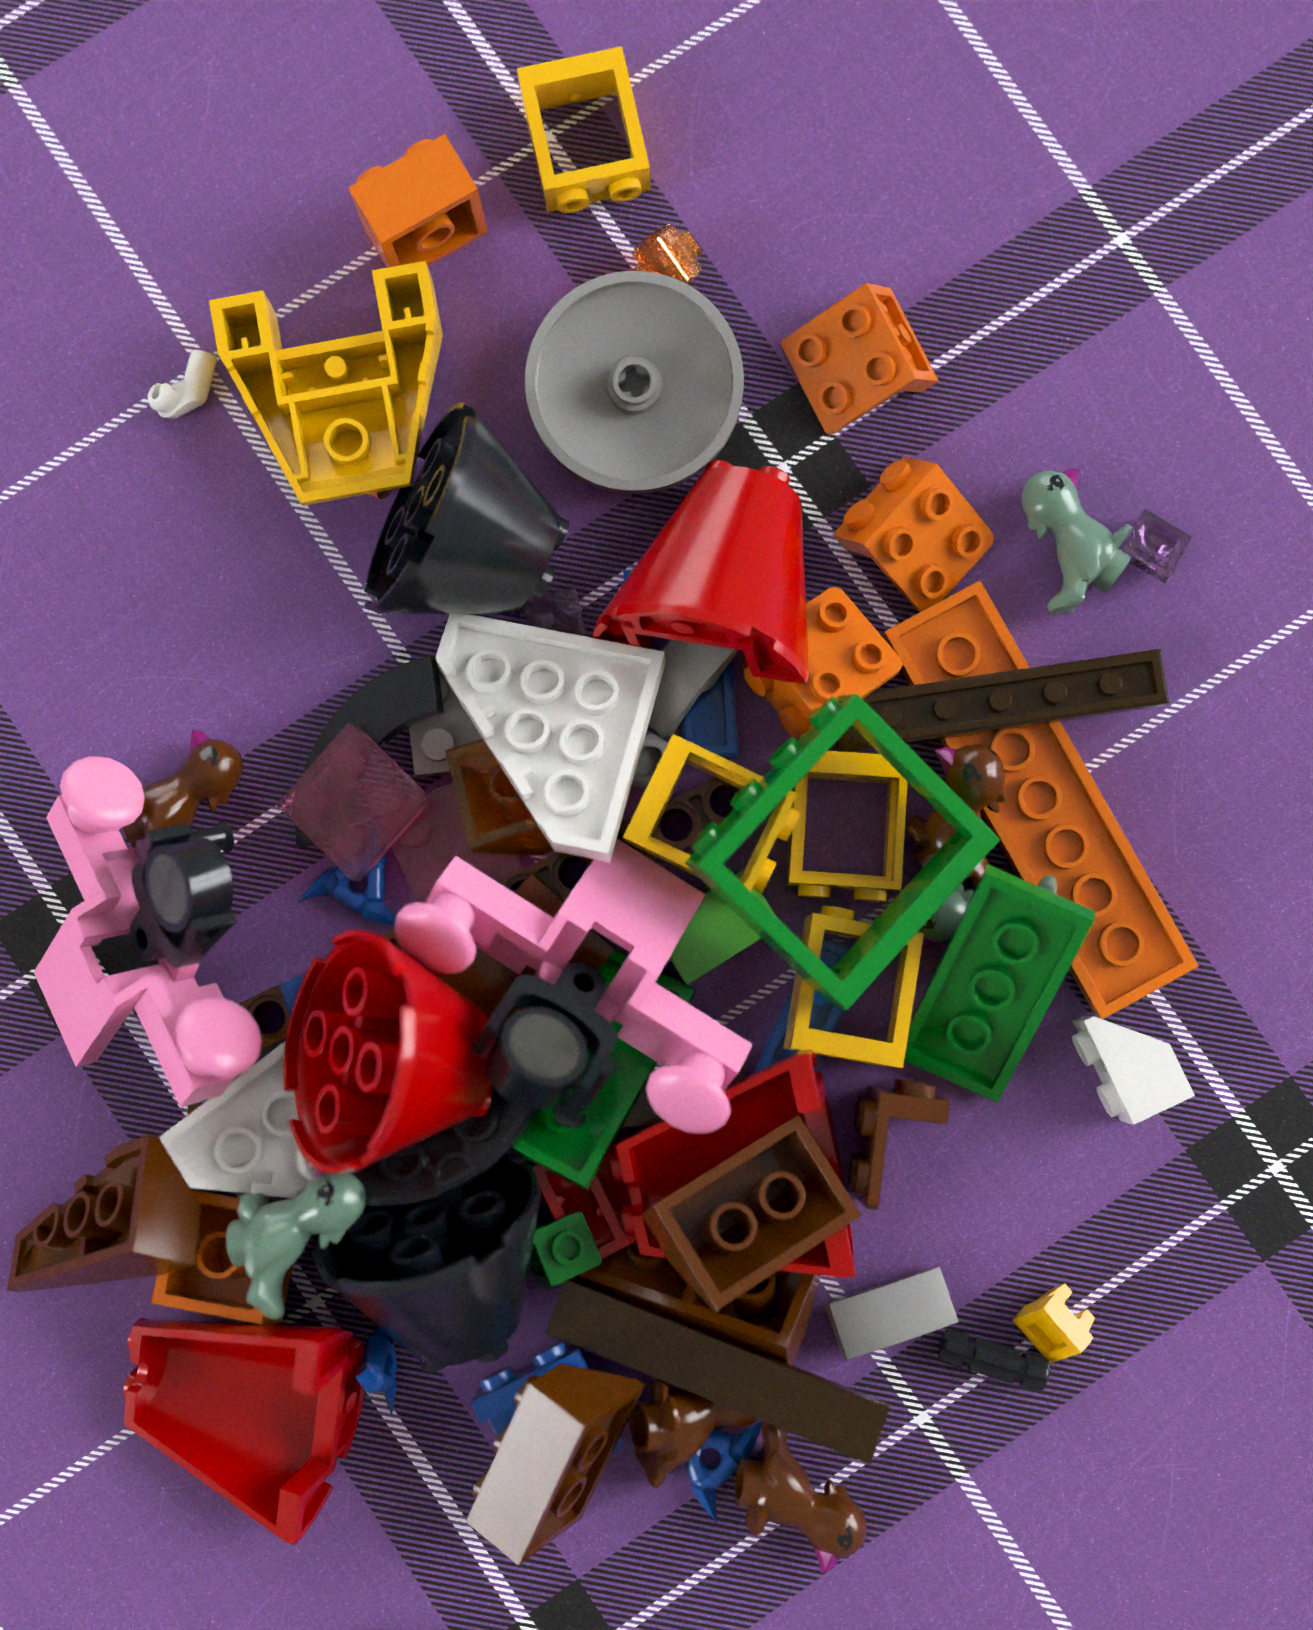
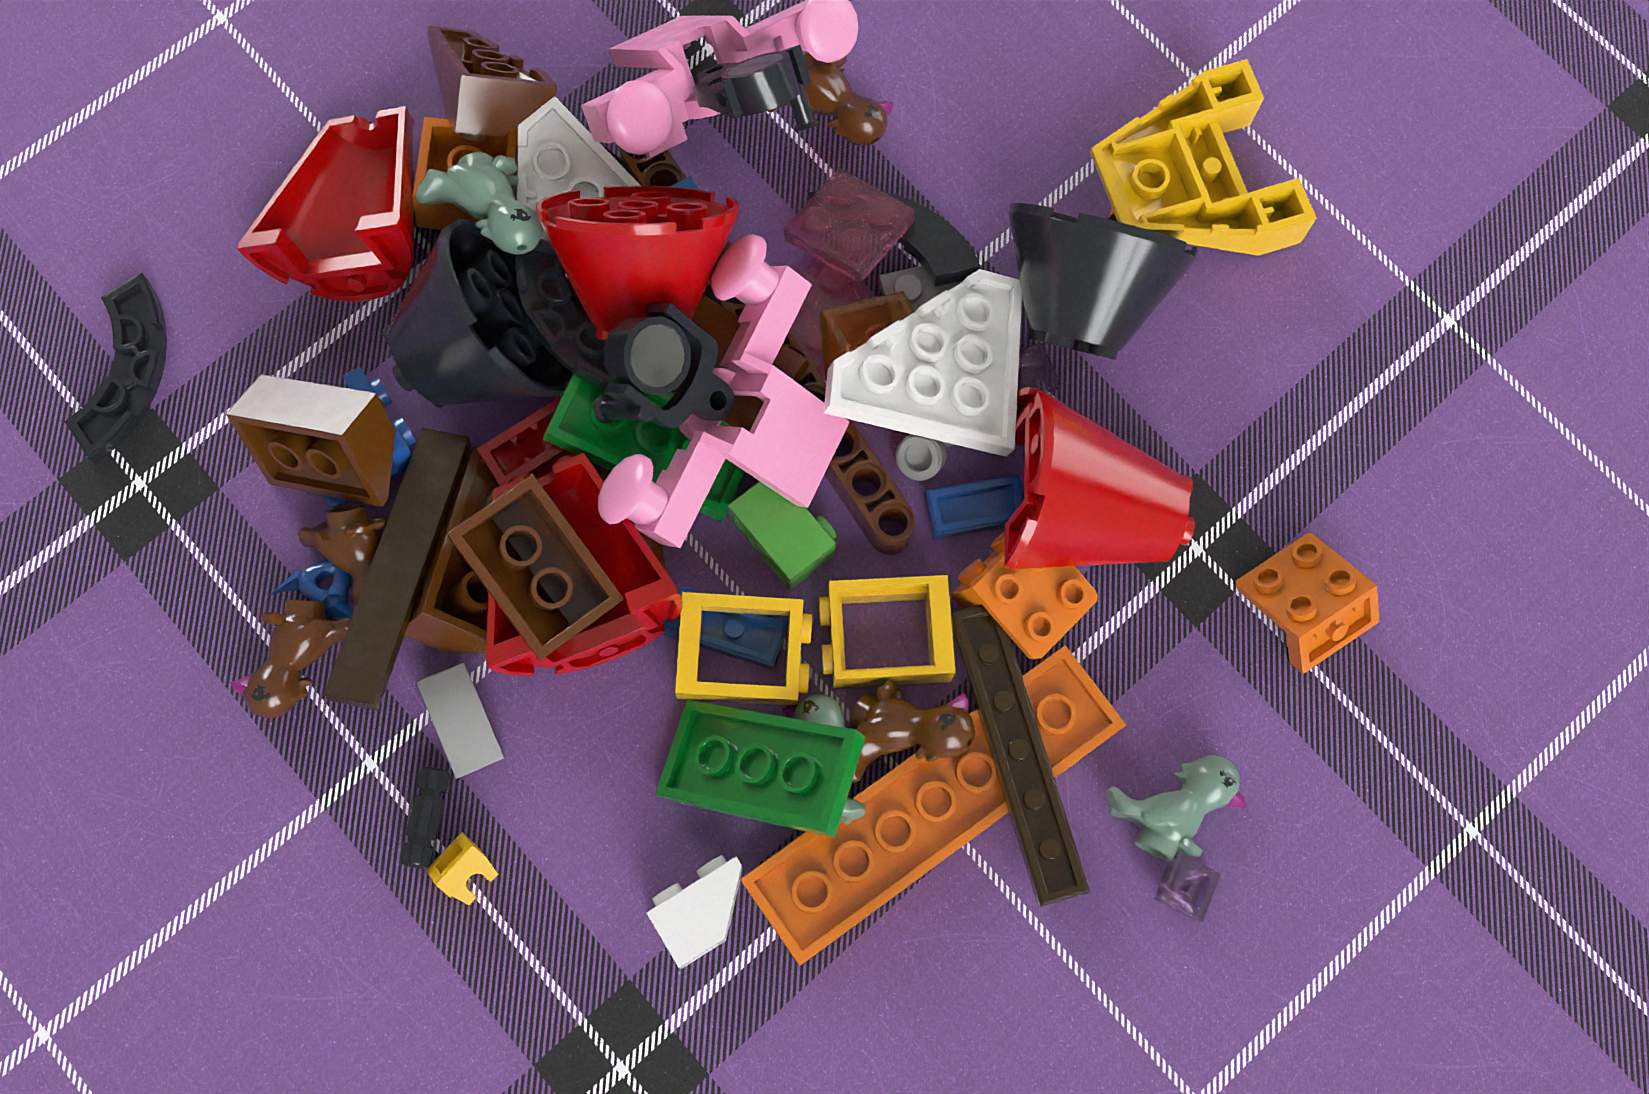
camera: 75 degrees right, 10 degrees down
(186, 394) = (1167, 66): white arm -> none
(367, 903) = (774, 235): blue piece -> none
(379, 1366) = (374, 296): blue piece -> none
(419, 205) = (1362, 212): orange brick -> none
(563, 1250) = (494, 431): green bracket -> none
(574, 81) = (1499, 324): yellow window -> none
(634, 382) = (1247, 405): light grey dish -> none
(660, 788) = (889, 456): yellow window -> none
(669, 254) = (1361, 422): clear orange gear -> none
(687, 673) = (995, 474): light grey slope -> none
(905, 1101) = (625, 676): reddish brown bracket -> none
(906, 912) = (809, 672): green window -> none
(917, 531) = (1160, 667): orange bracket -> none

